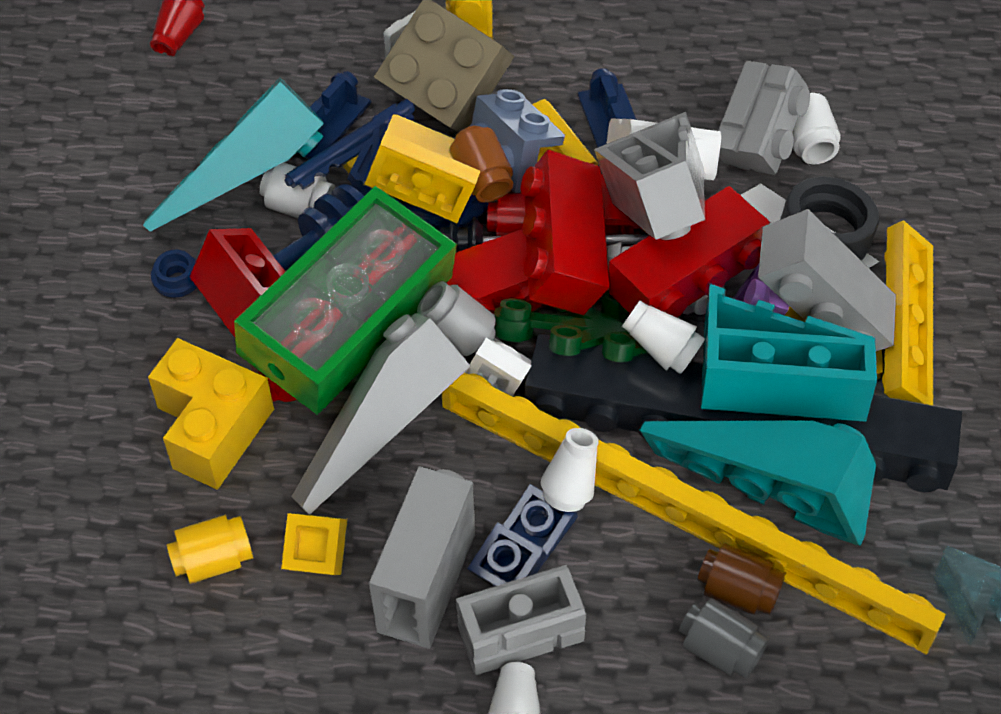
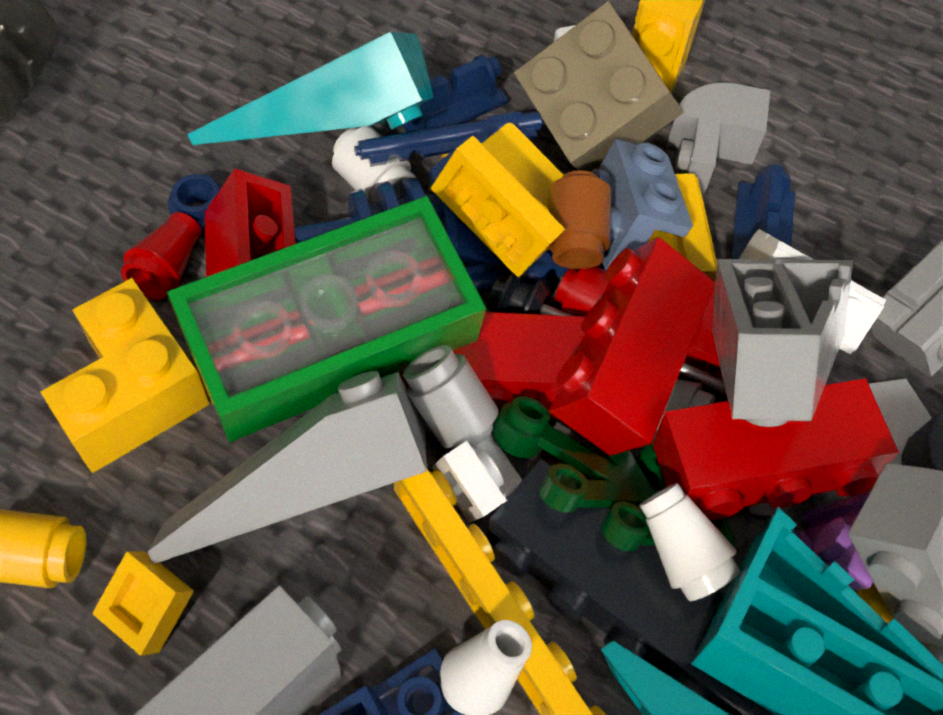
camera: 20 degrees right, 5 degrees up
(175, 319) = (162, 256): none -> red cone
(544, 53) = (719, 123): none -> light grey brick

